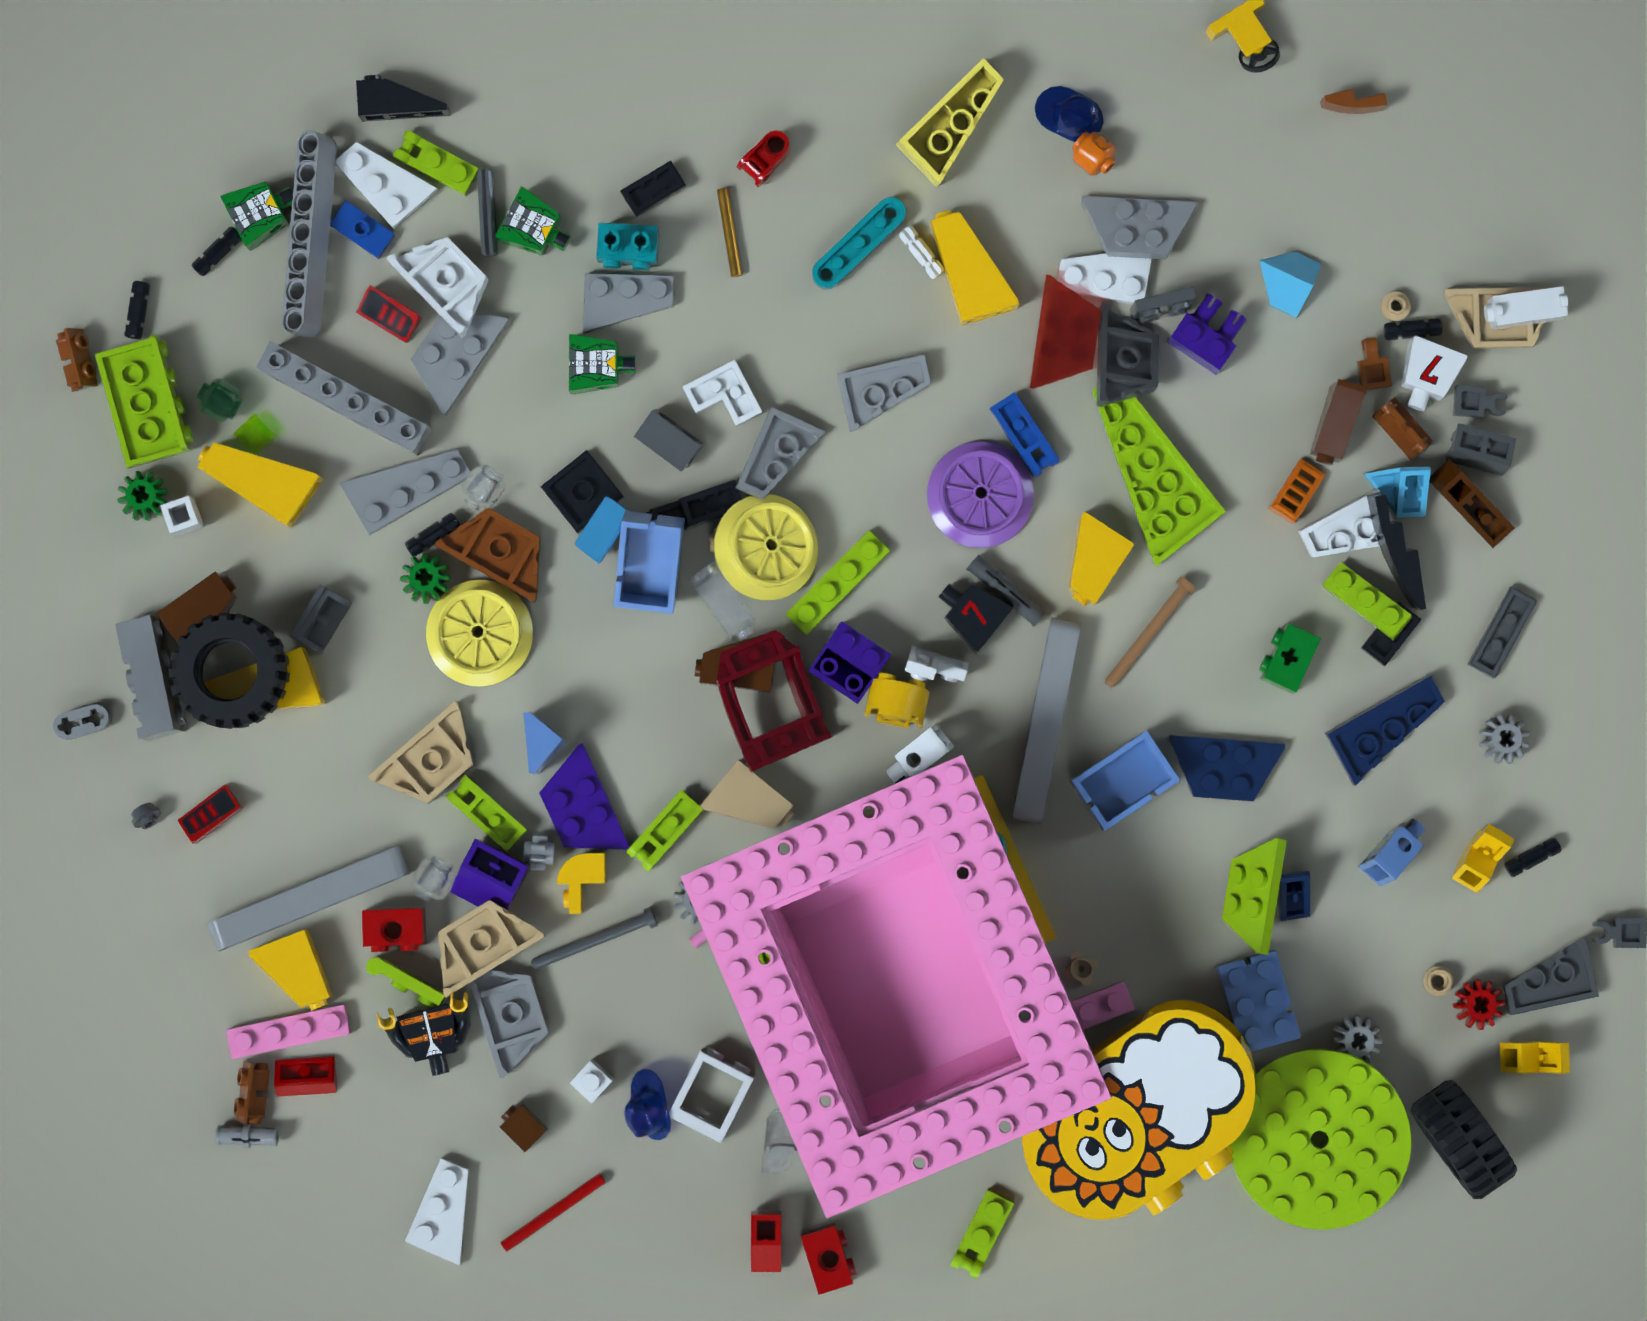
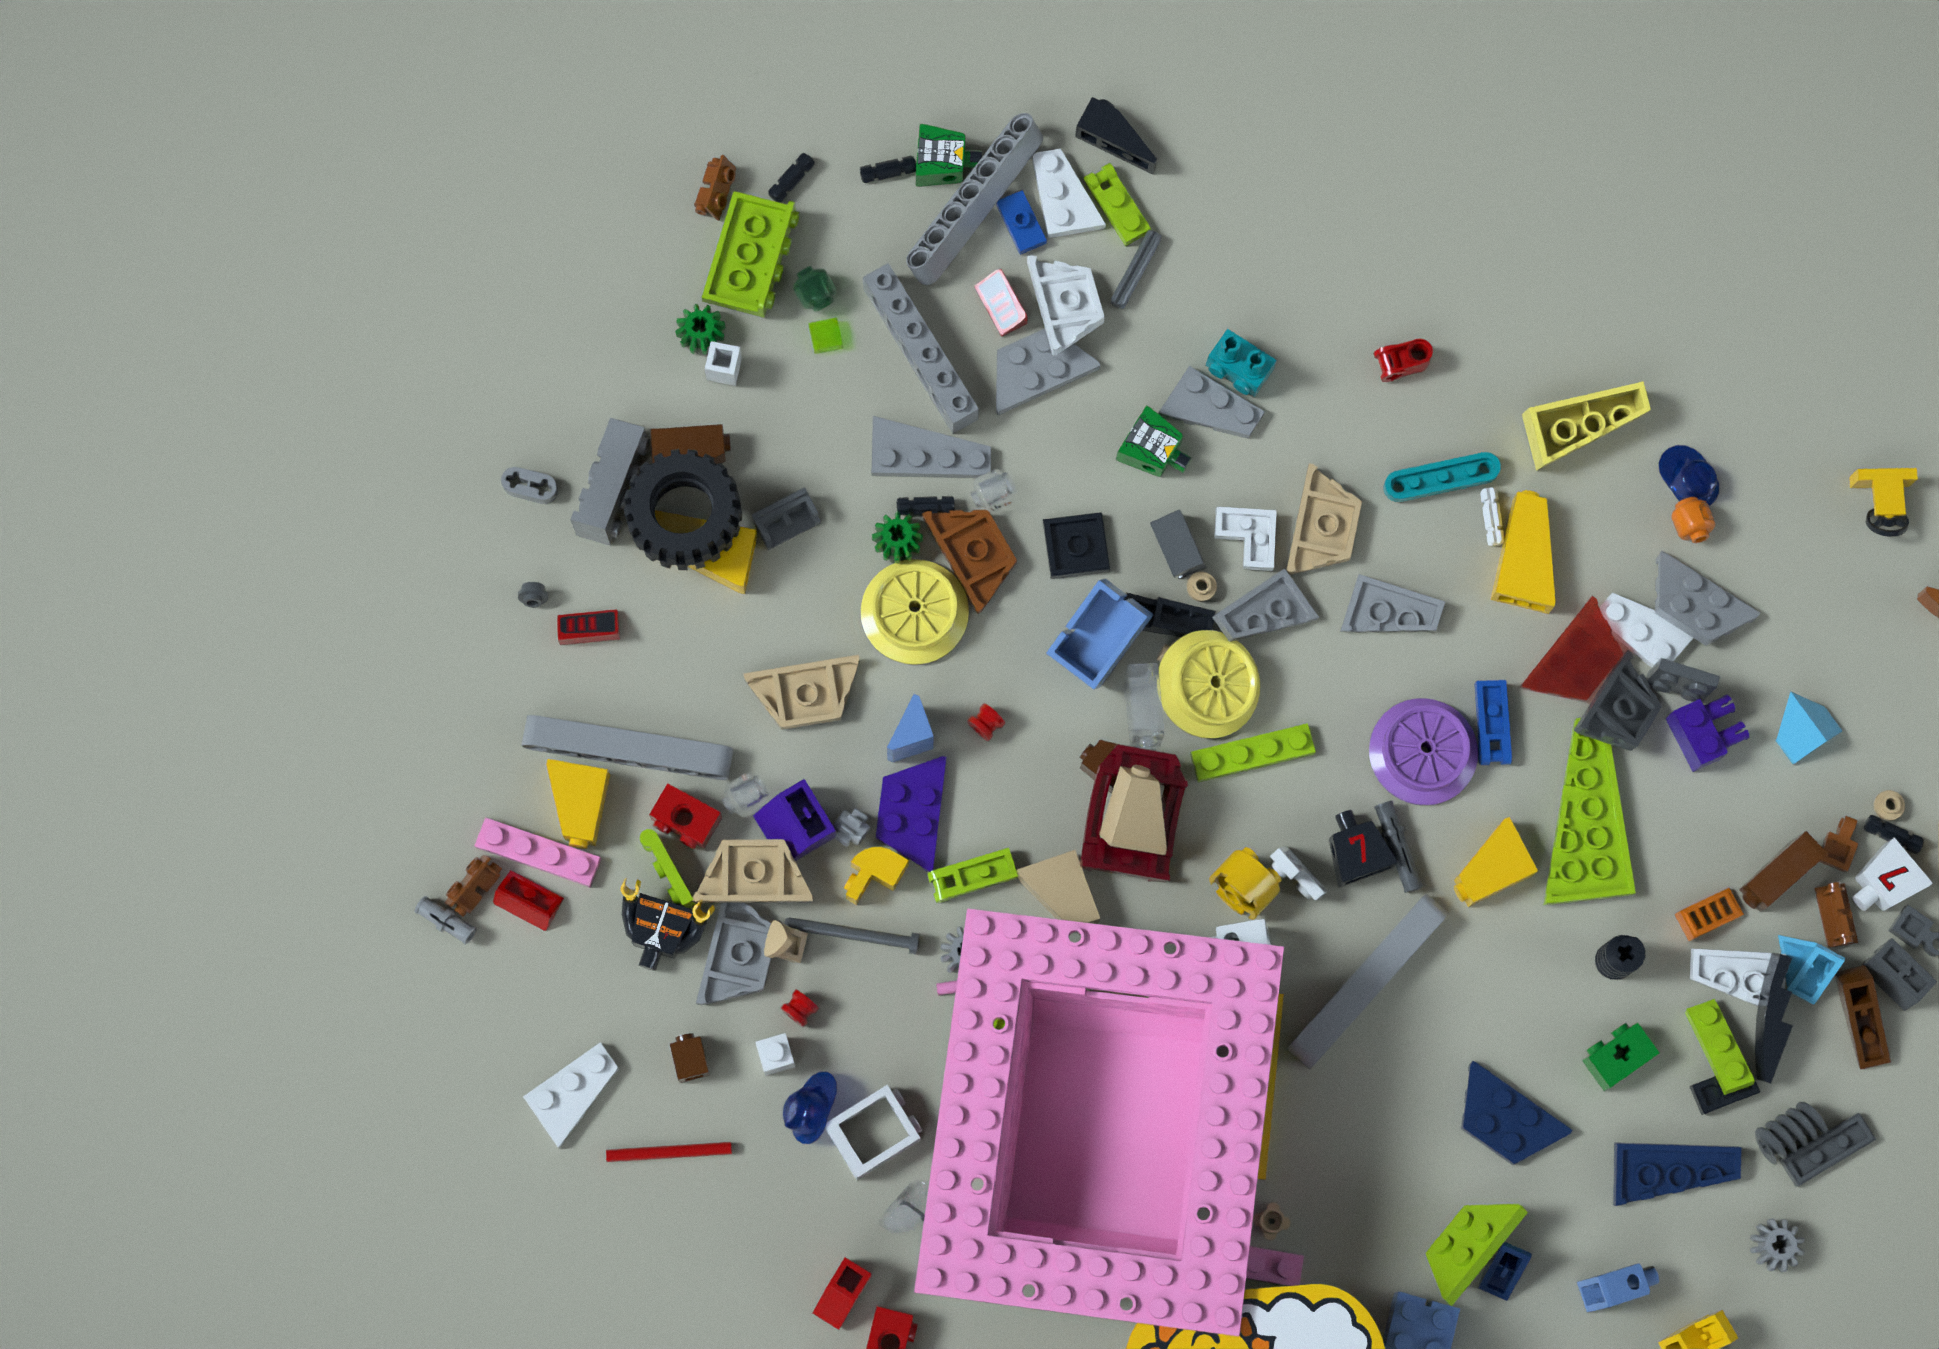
camera: 30 degrees right, 10 degrees down
(266, 483) = (810, 378): yellow slope -> none
(487, 814) = (826, 769): lime plate -> none
(532, 225) = (1168, 300): torso -> none
(542, 983) = (785, 942): none -> tan tile
(588, 1030) = (799, 1008): none -> red wheel
(598, 693) = (986, 722): none -> red wheel
(601, 530) = (1073, 585): dark azure slope -> none
(653, 188) = (1290, 330): black plate -> none
(710, 473) = (1201, 595): none -> tan plate
(729, 232) = (1334, 404): pearl gold bar -> none
(770, 702) = (1135, 812): none -> tan slope
(782, 346) = (1323, 524): none -> tan wing
(849, 662) = (1224, 824): dark purple slope -> none
(1124, 779) = (1409, 1074): medium blue piece -> none
(1150, 631) = (1559, 938): medium nougat bar -> none
(1251, 568) = (1631, 956): none -> black piece
(1462, 637) = (1788, 1130): none -> dark grey piece

